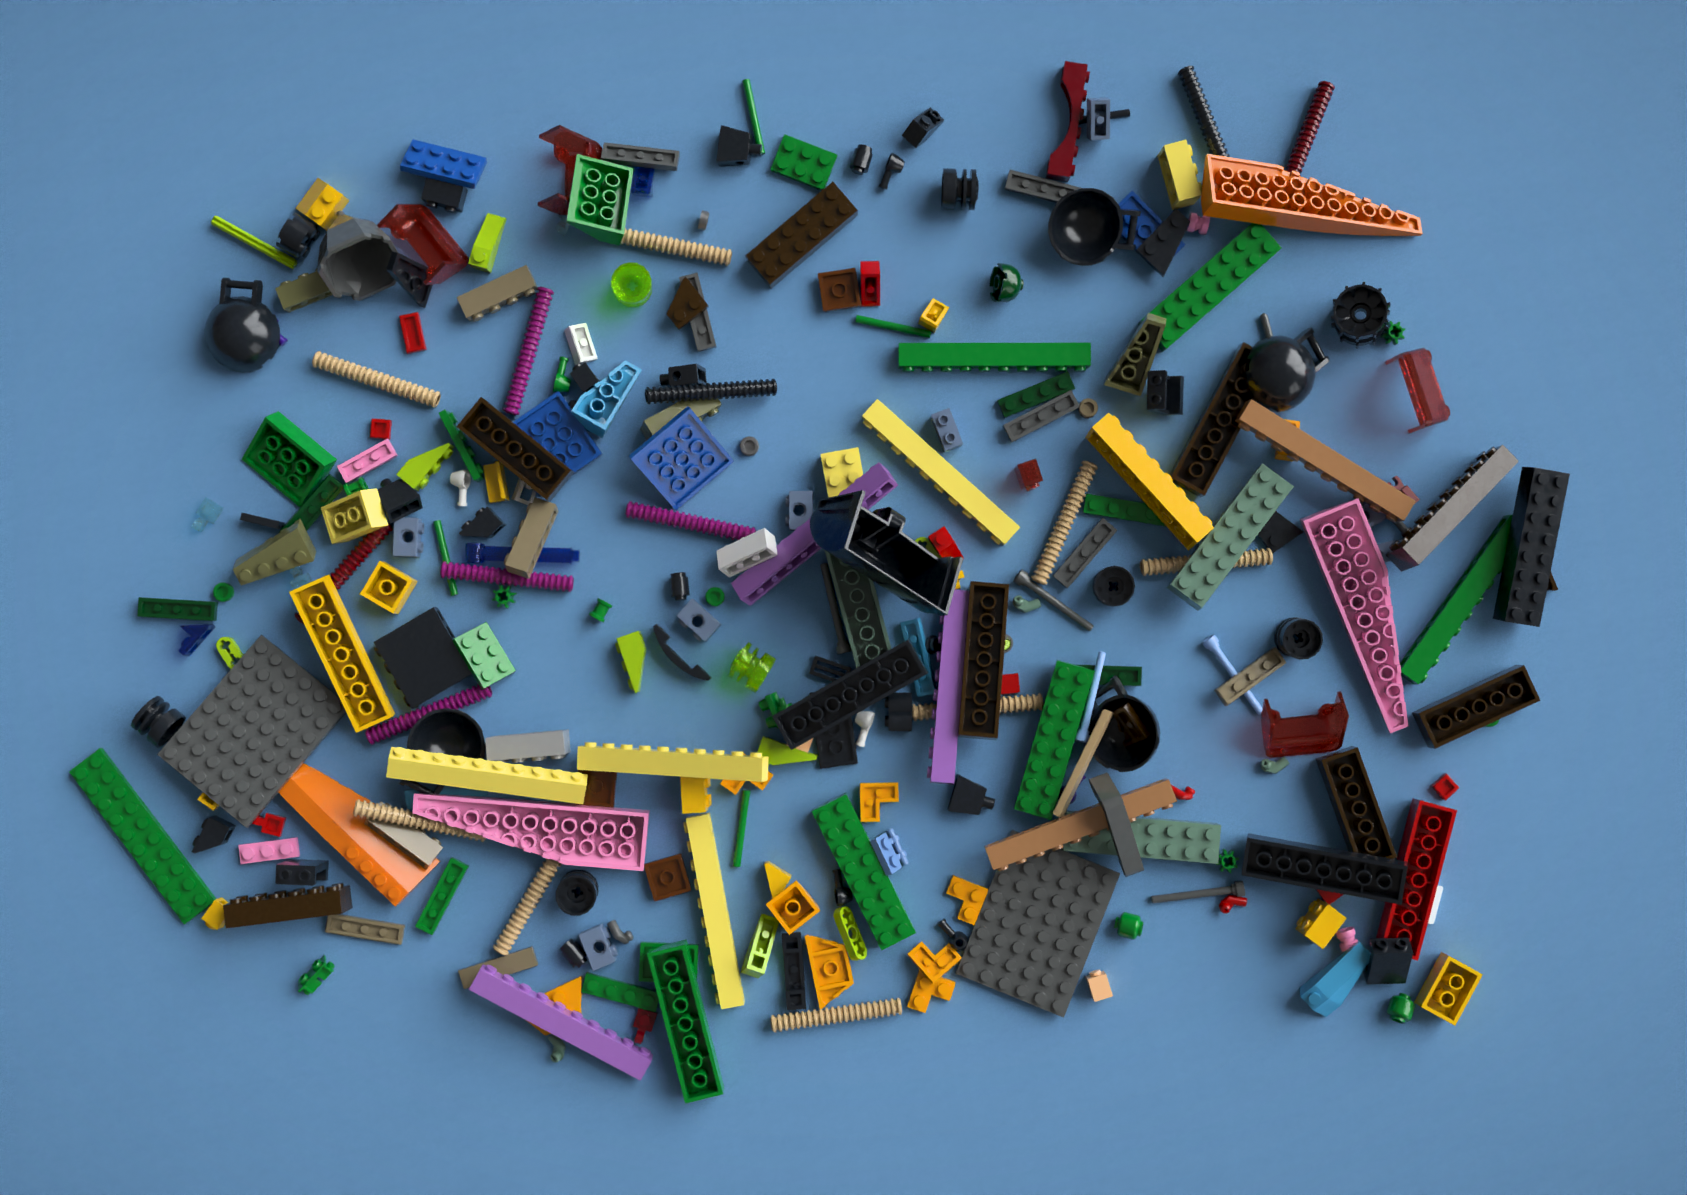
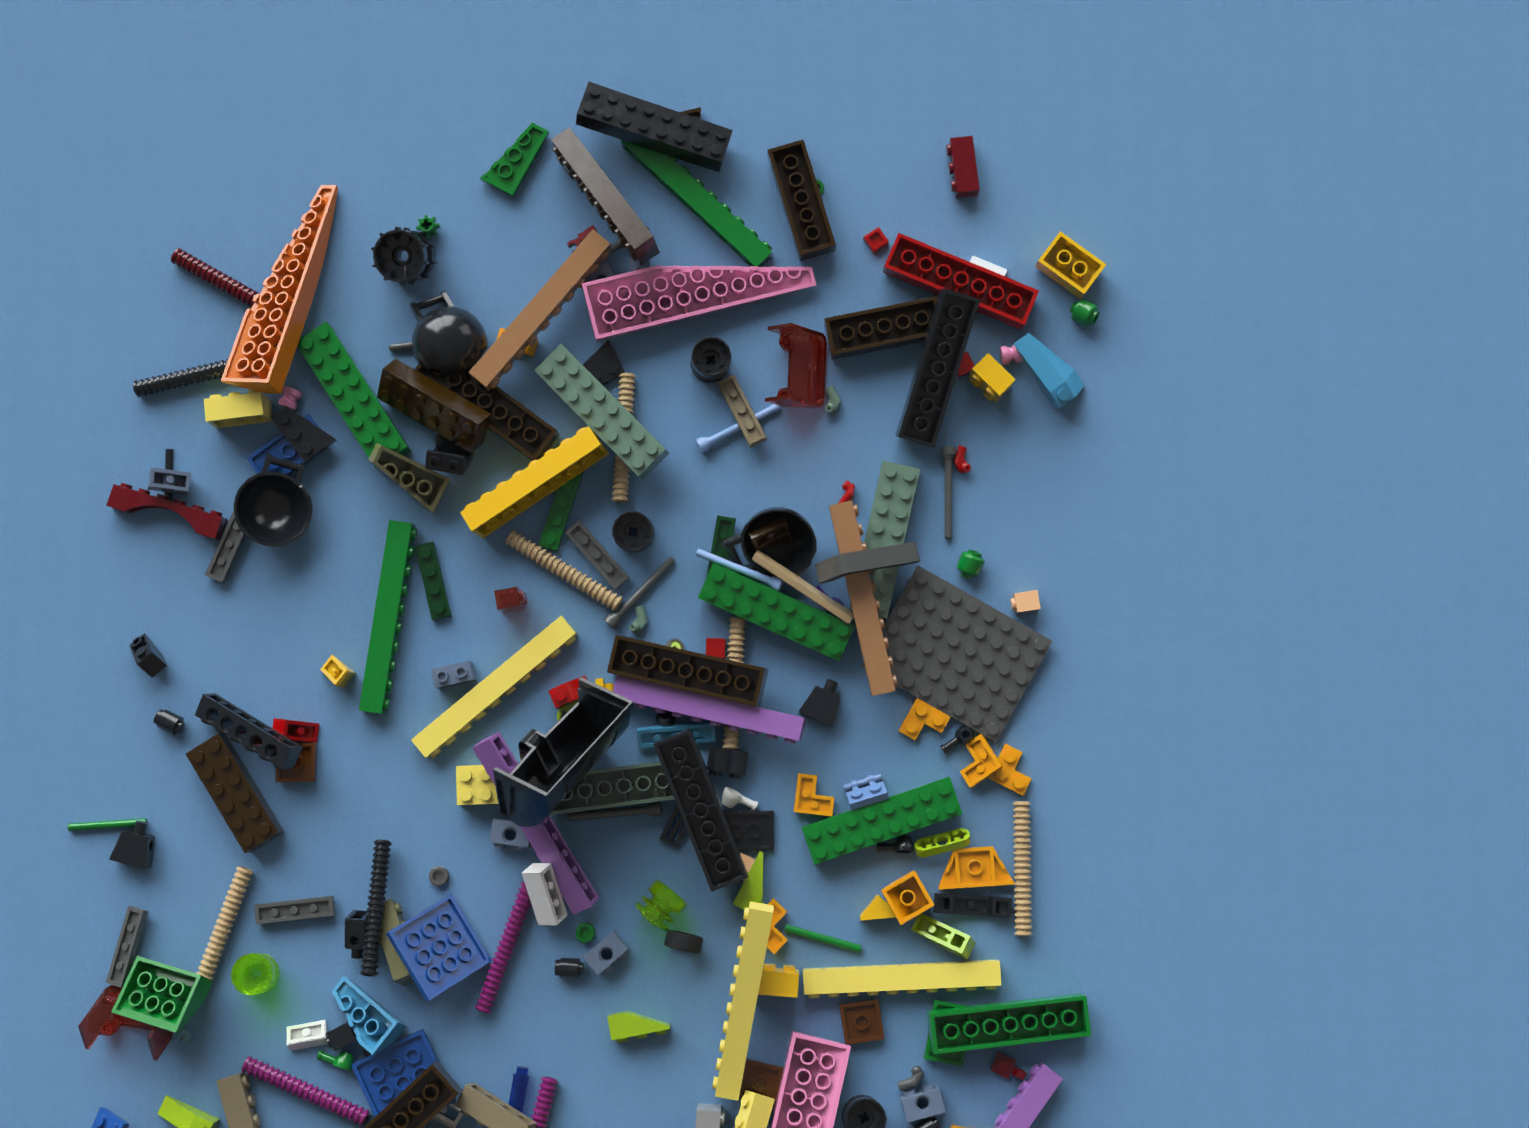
camera: 80 degrees left, 5 degrees down
(600, 610) = (581, 1052): green bush -> none
(620, 992) = (971, 1086): green plate -> none
(643, 182) = (153, 947): clear blue slope -> none
(662, 638) = (619, 992): black slope -> none
(686, 304) = (285, 920): dark brown wing -> none
(703, 220) = (202, 890): flat silver tile -> none
(720, 694) = (683, 941): none -> black tyre
(775, 705) = (701, 888): green hips -> none
(804, 162) = (162, 780): green plate -> none
(850, 281) = (248, 731): none -> black brick
(893, 165) = (180, 689): black bar -> none
(893, 326) = (342, 713): green bar -> none
(959, 189) = (215, 628): black wheel -> none
(1005, 283) = (316, 595): dark green cylinder -> none
(1041, 416) = (455, 578): dark grey plate -> none
(1088, 408) = (454, 531): dark tan tile -> none
(1212, 368) = (433, 405): none -> dark brown brick
(1224, 854) = (919, 453): green gear -> none
(1388, 961) = (1036, 318): black panel -> none
(1422, 387) = (485, 207): clear red windscreen -> none
(1476, 412) = (515, 163): none -> green wing
(1534, 865) = (963, 166): none -> dark red brick

